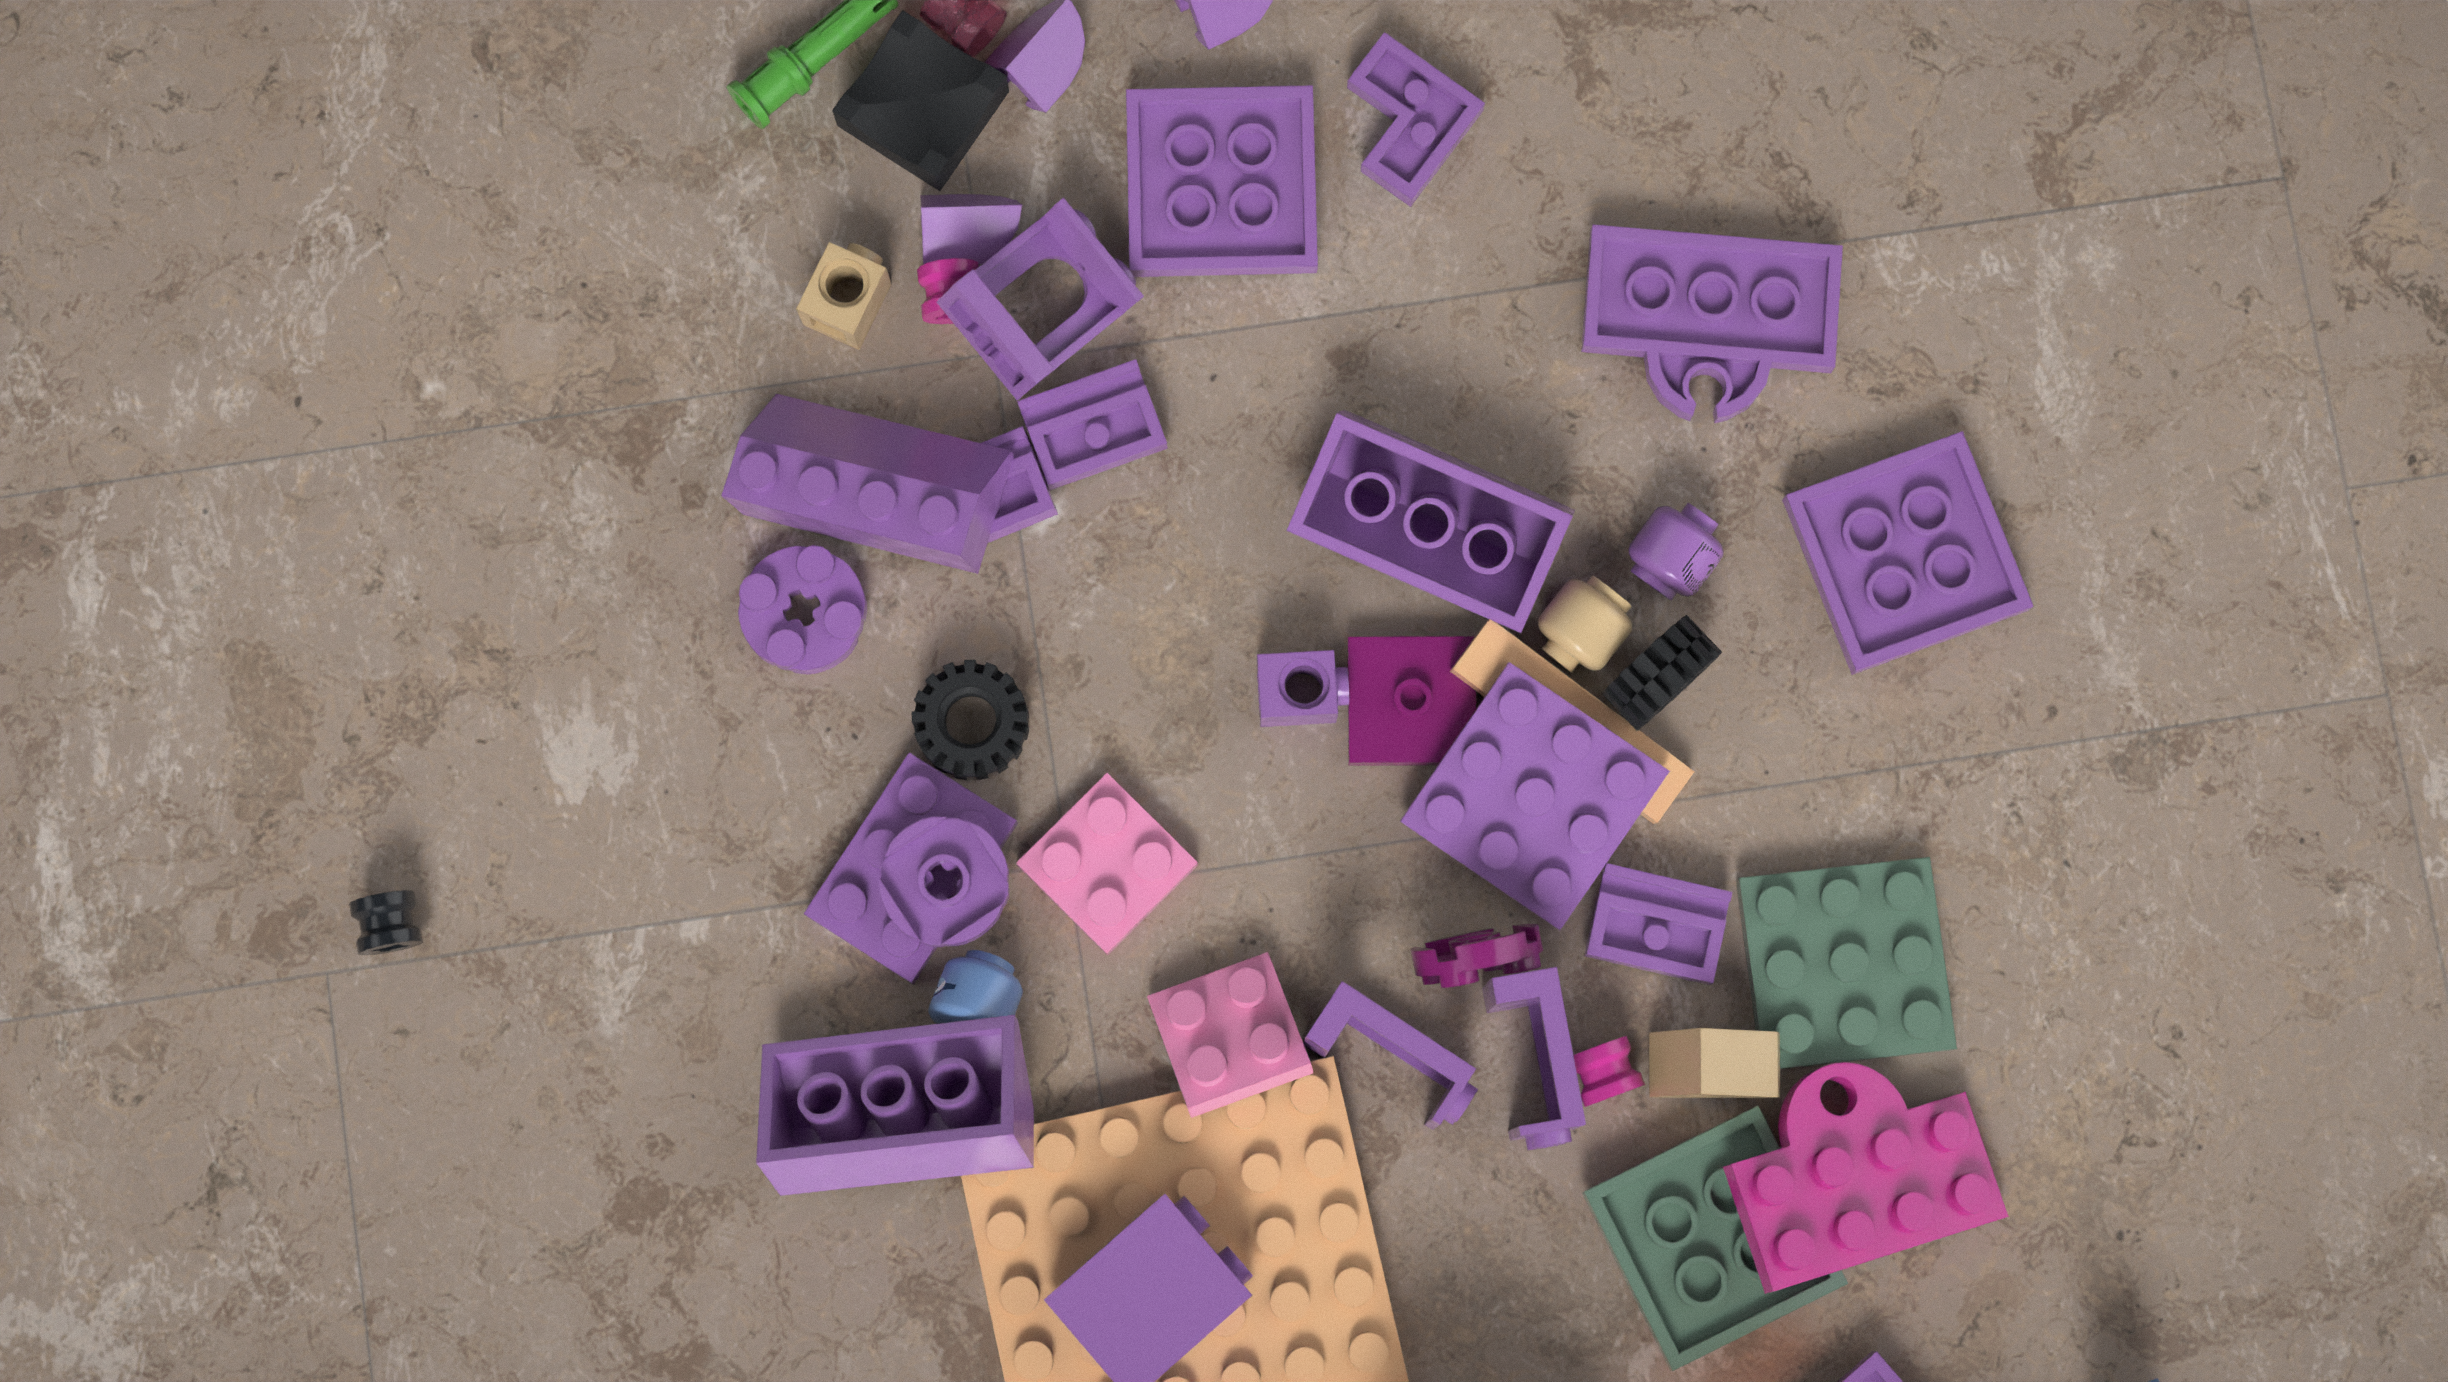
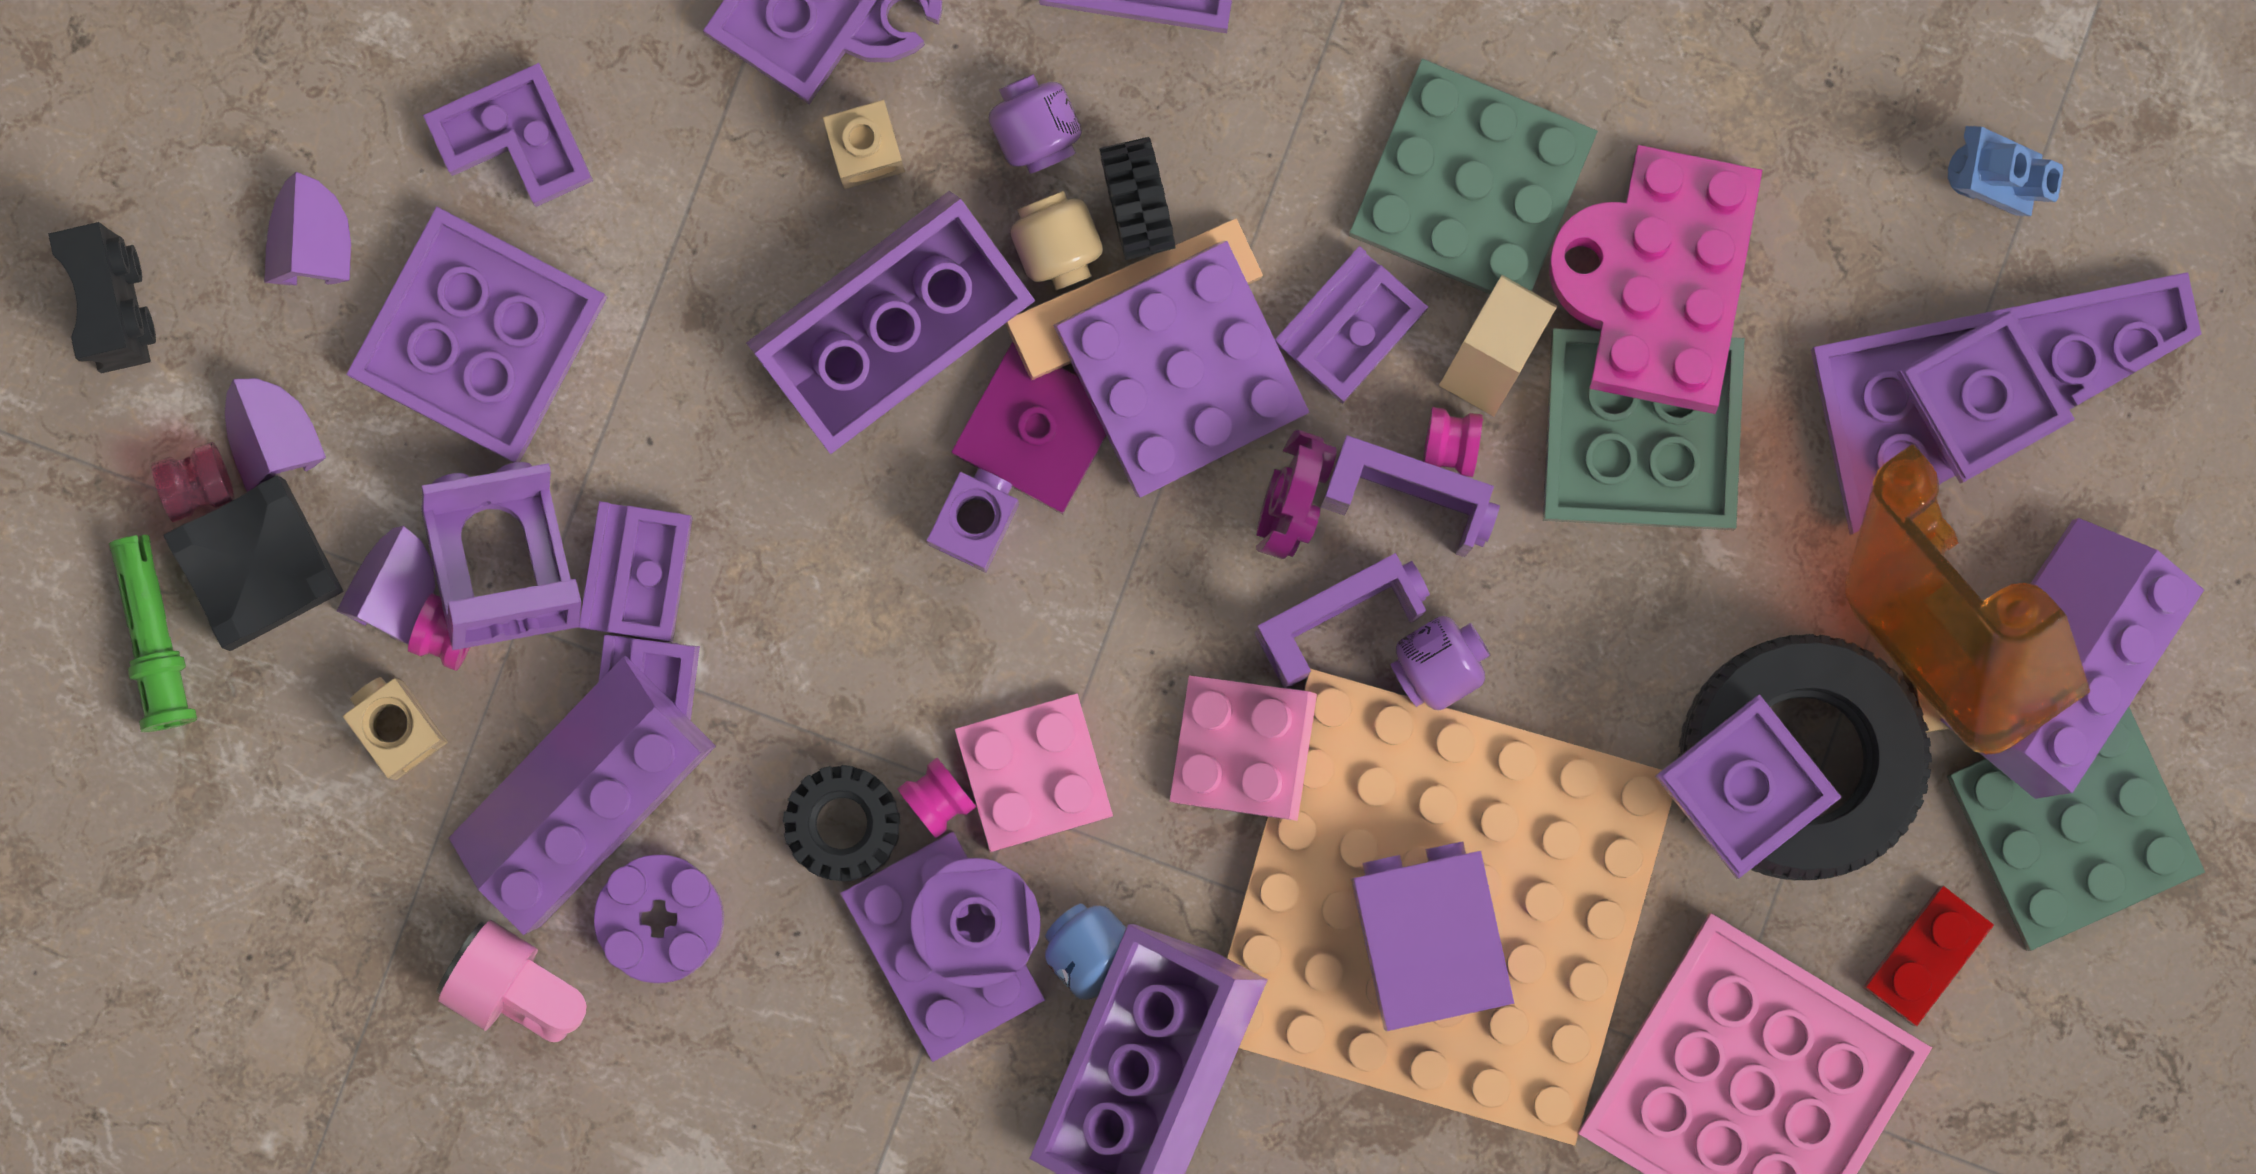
camera: 60 degrees left, 5 degrees up
(677, 495) = (498, 976): none -> bright pink piece
(1037, 789) = (936, 797): none -> dark pink wheel
(1402, 1169) = (1440, 663): none -> medium lavender head
(1573, 413) = (863, 144): none -> tan brick

